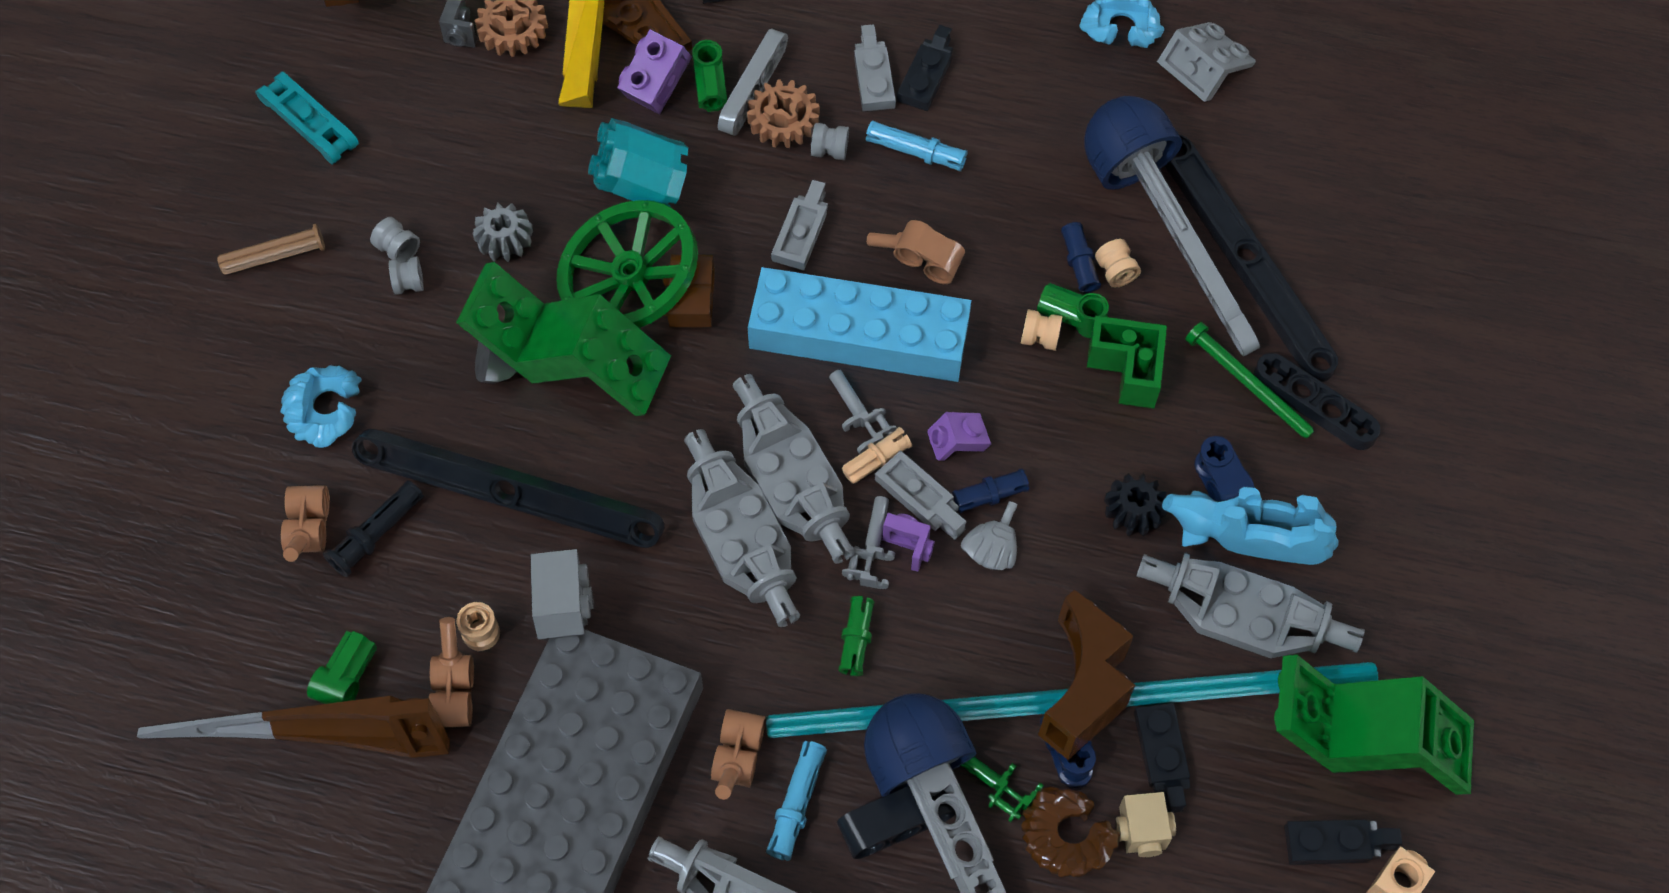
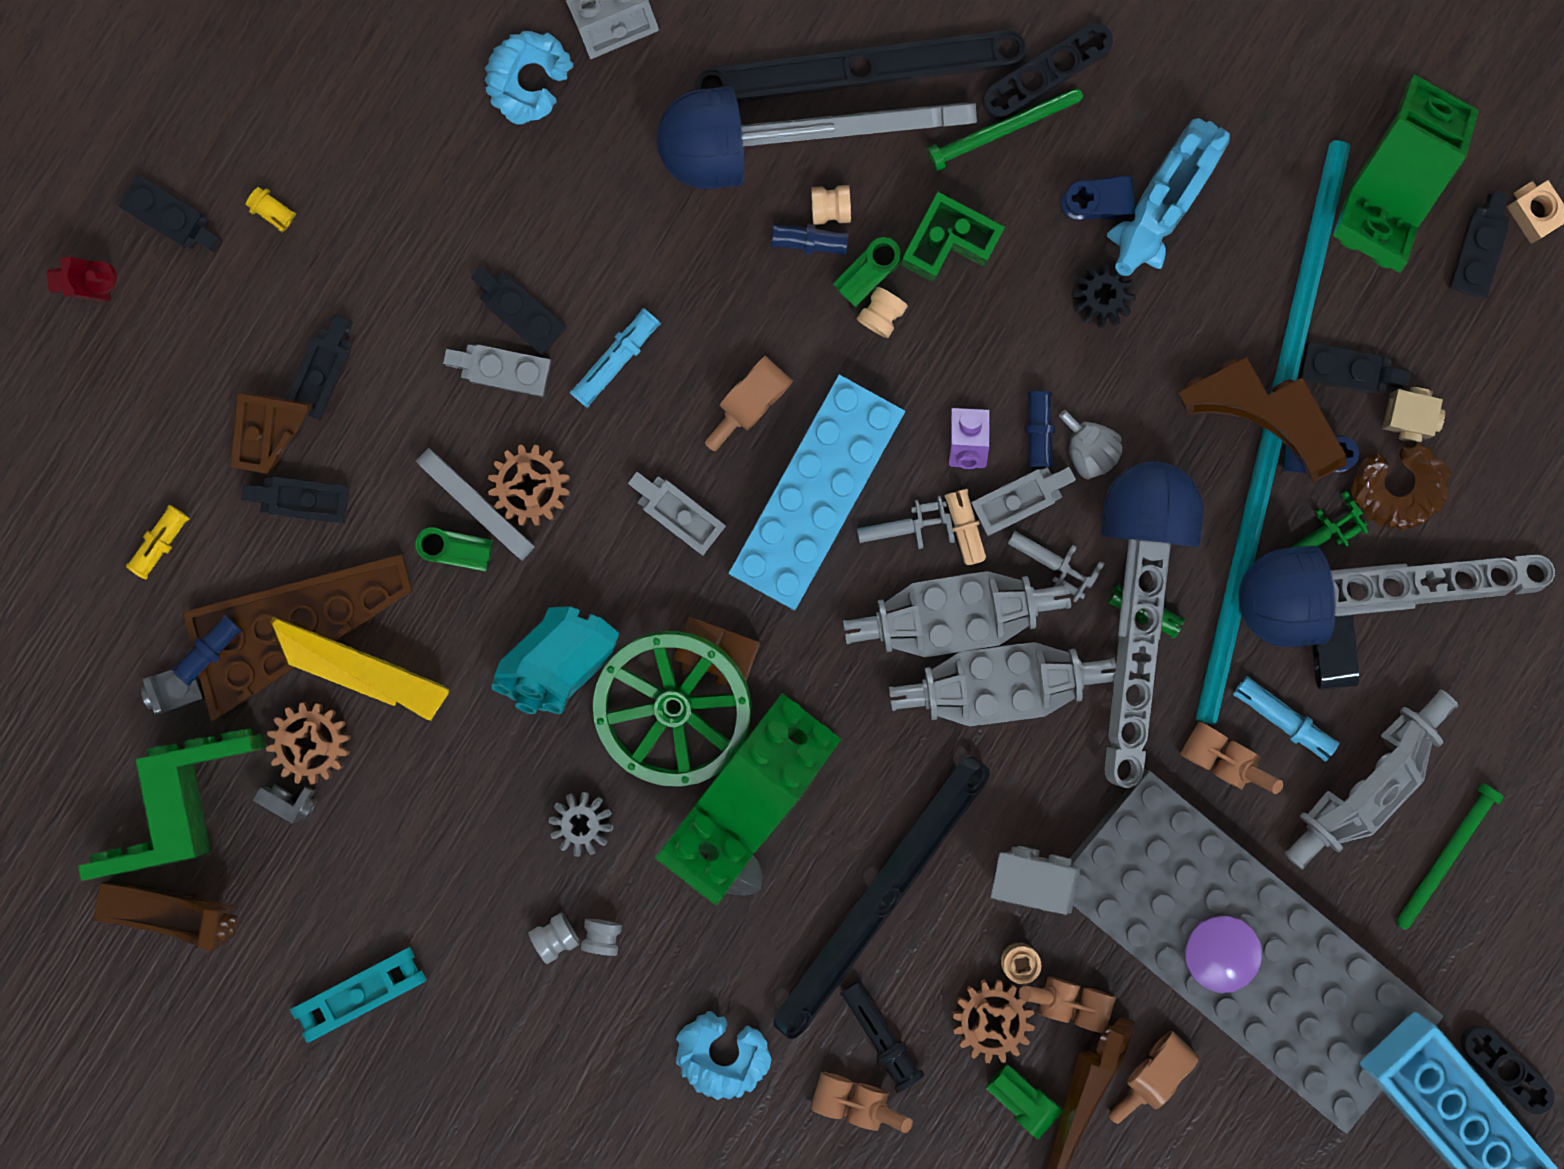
camera: 70 degrees left, 25 degrees up
(271, 250) = (520, 1067): medium nougat axle -> none
(397, 782) = (1158, 1078): none -> nougat beam
(409, 603) = (978, 1032): none -> nougat gear
(536, 791) = (1223, 954): none -> medium lavender dish
(654, 71) = (434, 608): medium lavender brick -> none
(829, 141) = (582, 447): light grey wheel -> none
(911, 534) = (1056, 526): medium lavender bracket -> none
(951, 595) = (1153, 509): none -> piece
(1248, 608) = (1241, 232): light grey plate -> none

